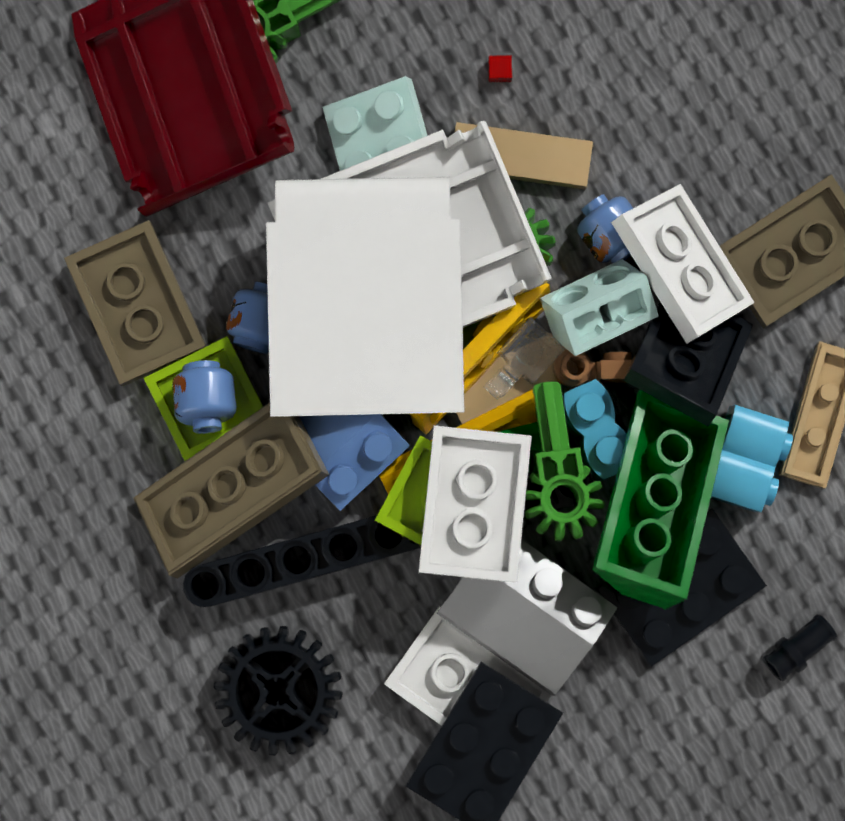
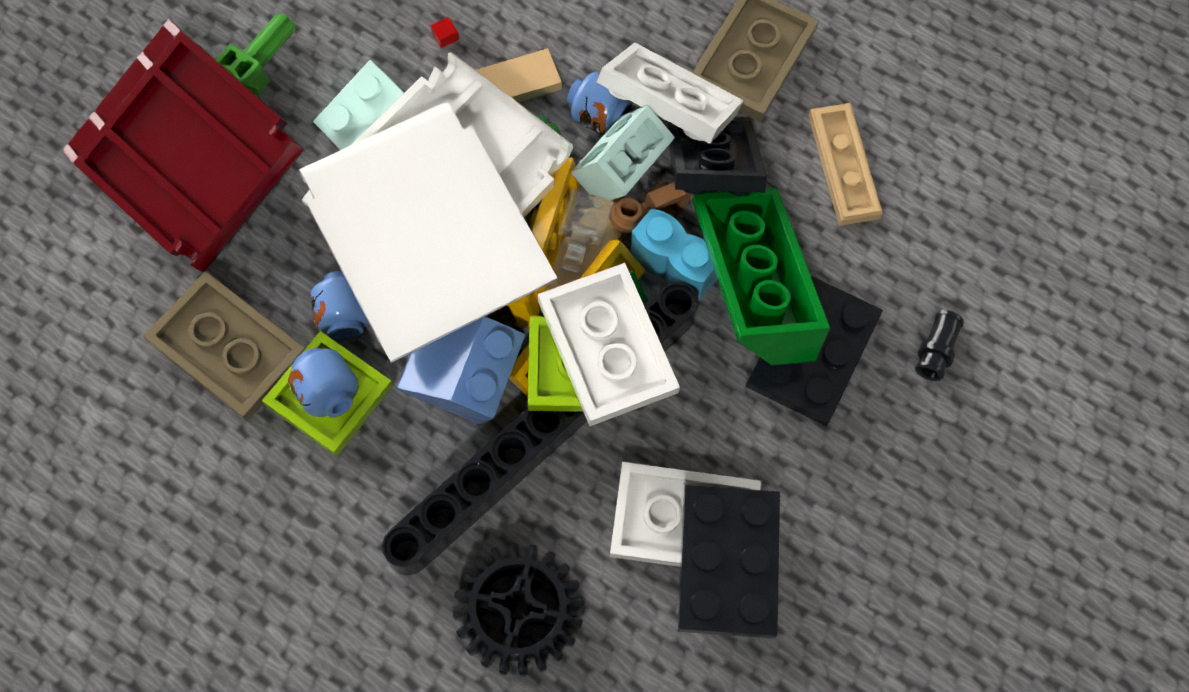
camera: 30 degrees left, 15 degrees down
(229, 488) = (384, 451): dark tan tile -> none
(533, 625) = (707, 430): light grey slope -> none
(558, 468) = (664, 287): bright green gear -> none
(749, 459) = (811, 211): medium azure brick -> none

